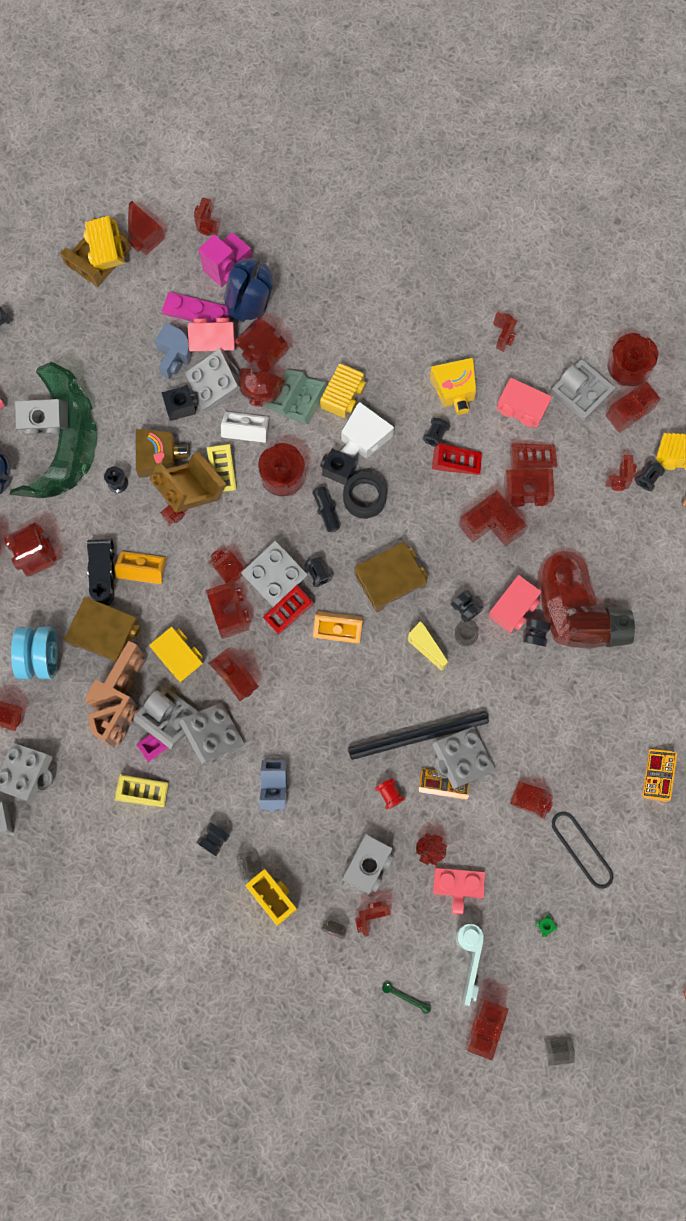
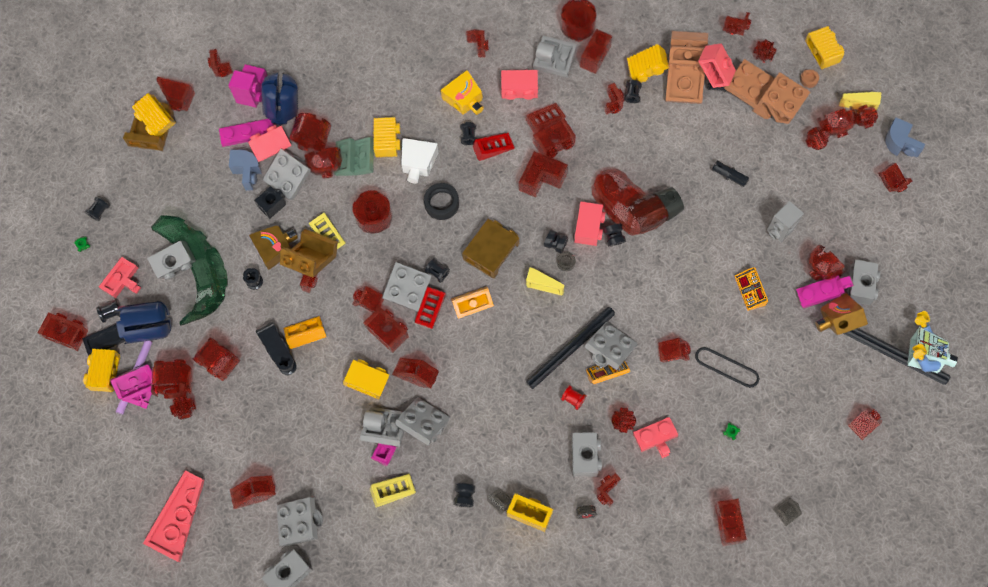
camera: 25 degrees left, 5 degrees down
(34, 653) = (257, 431): medium azure wheel -> none
(101, 629) = (301, 390): pearl gold panel -> none
(111, 706) = (338, 437): nougat piece -> none
(244, 426) = (327, 196): white slope -> none
(273, 785) = (487, 433): sand blue brick -> none
(326, 509) = (418, 224): black axle -> none
(336, 457) = (415, 197): black brick -> none
(387, 988) = (645, 533): dark green hinge -> none
(471, 939) = (685, 467): light aqua door -> none

